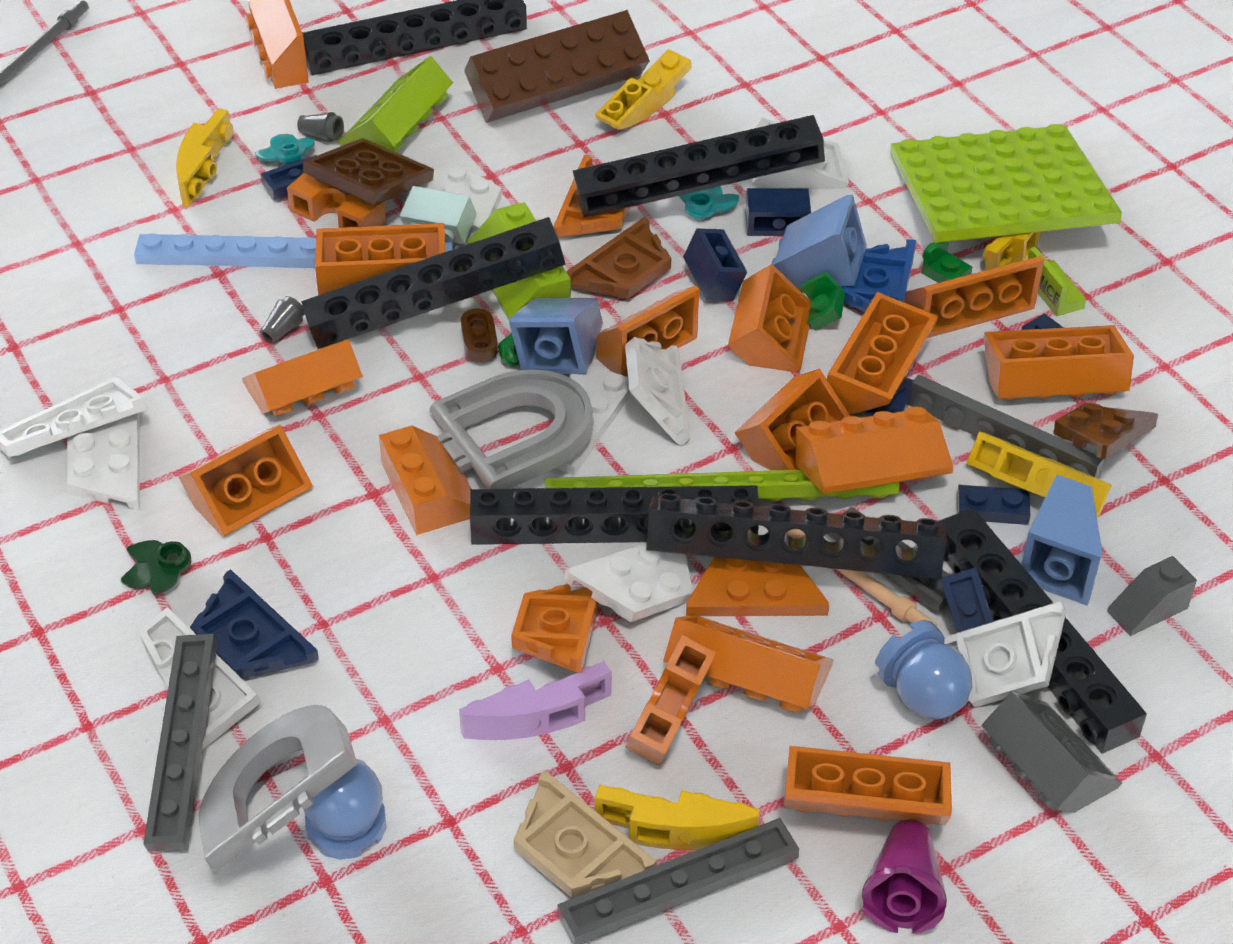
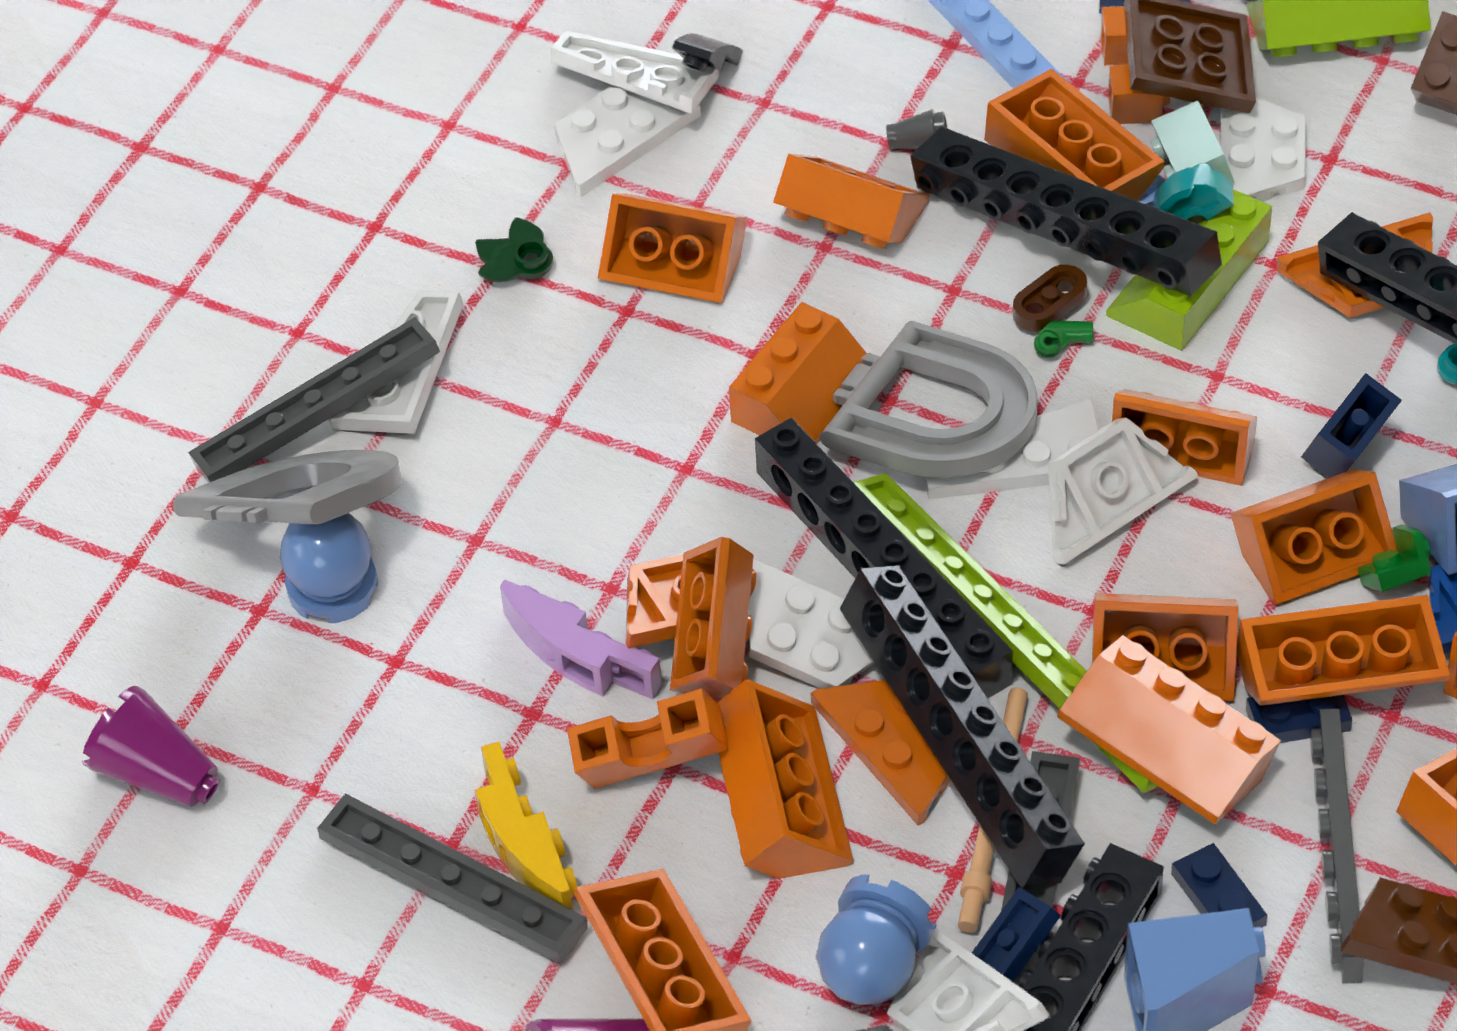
camera: 60 degrees right, 5 degrees up
(105, 374) = (703, 51): none -> black slope
(250, 632) = (487, 370): dark blue wing -> none
(481, 223) = (1195, 192): none -> teal cylinder
(556, 334) = (1096, 350): medium blue slope -> none
(575, 842) = (434, 767): tan wing -> none
(610, 609) = (713, 618): none -> orange slope
(623, 263) = (1288, 351): dark orange wing -> none
(1029, 469) = (1286, 912): yellow slope -> none

